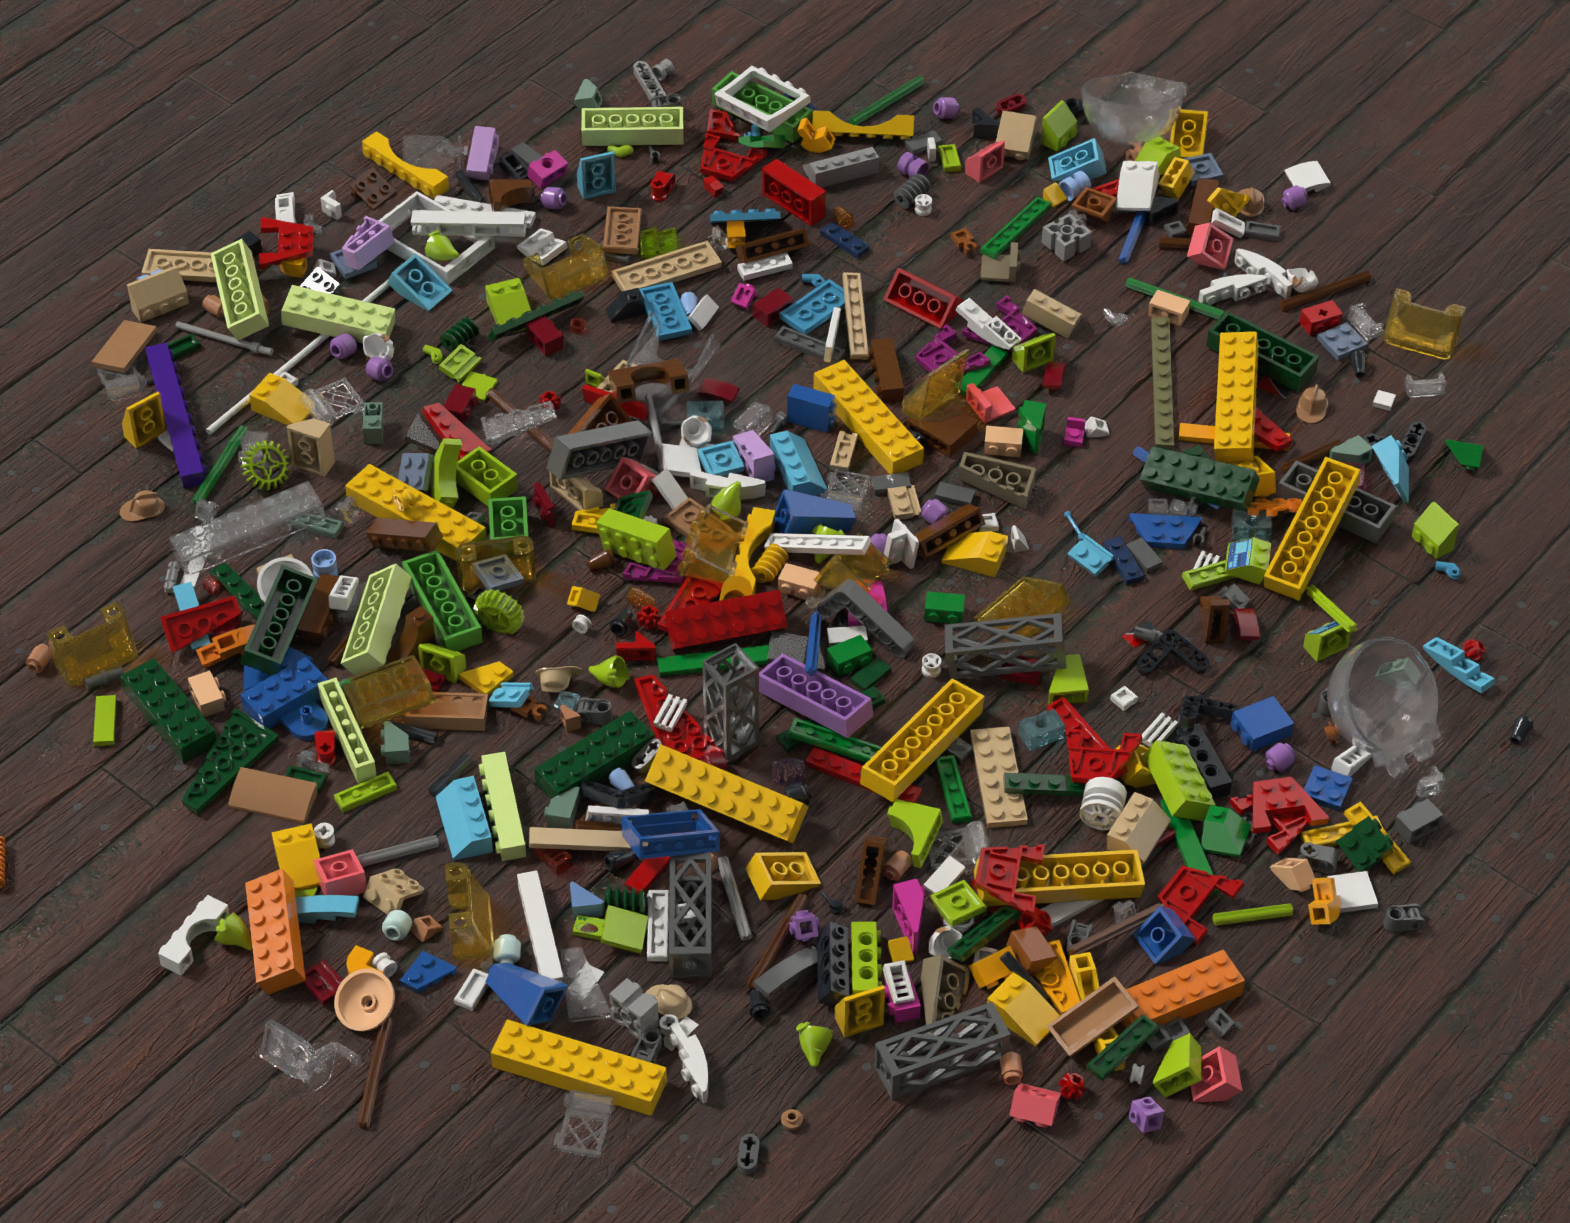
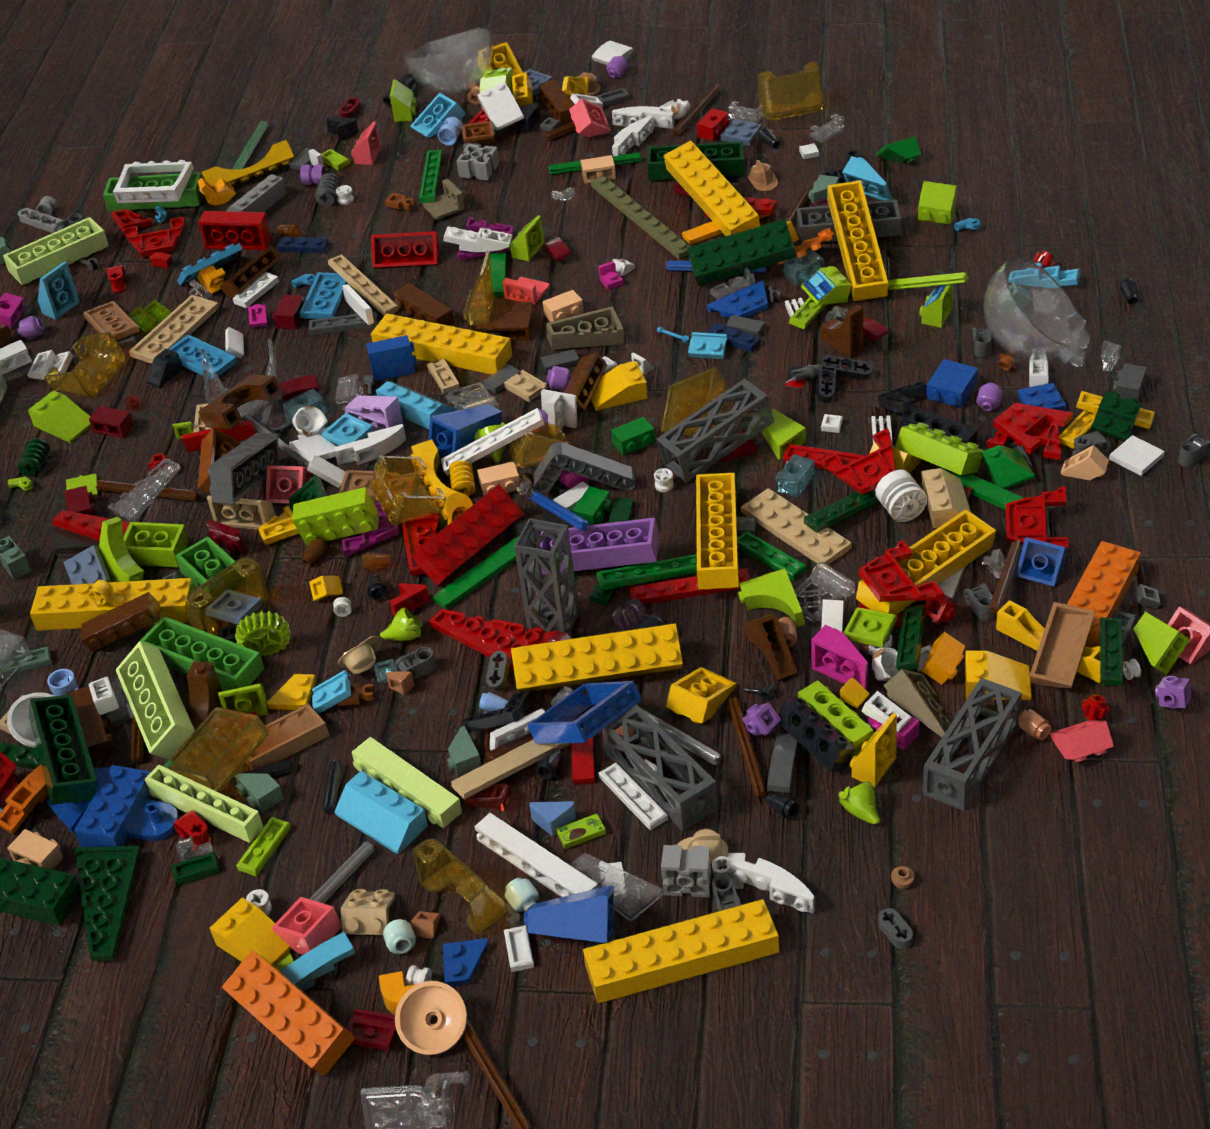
camera: 30 degrees left, 5 degrees down
(176, 953) = (203, 1092): white arch -> none
(233, 932) = (244, 1039): lime hat -> none
(273, 795) = (176, 899): medium nougat slope -> none
(348, 509) = (46, 634): clear tile -> none
(459, 363) = (52, 478): lime plate -> none
(556, 306) = (79, 425): dark green plate -> none
(585, 1106) = (719, 981): clear piece -> none
(594, 756) = (451, 698): dark green brick -> none
(624, 929) = (609, 815): lime tile -> none
(626, 899) = (588, 789): dark green piece -> none
(648, 617) = (396, 570): red gear -> none
(675, 701) = (484, 616): white tile -> none
(689, 302) = (216, 340): light blue cone -> none
(729, 499) = (383, 447): lime hat -> none
(768, 141) = (183, 209): green slope -> none
(938, 353) = (458, 280): magenta wing -> none
(946, 108) = (302, 130): medium lavender head -> none
(1014, 966) = (962, 645): black axle -> none
(1018, 133) = (376, 112): tan slope -> none
(1031, 949) = (962, 627): dark orange slope -> none
(1032, 423) = (576, 278): green slope -> none
(1051, 313) = (514, 210): tan slope -> none
(1054, 195) = (439, 143): yellow slope -> none
(1058, 981) = (985, 635): light orange wing -> none
(1132, 236) = (527, 149): blue axle -> none
(1252, 914) = (1087, 509): lime axle -> none
(1327, 903) = (1131, 468): light orange brick -> none

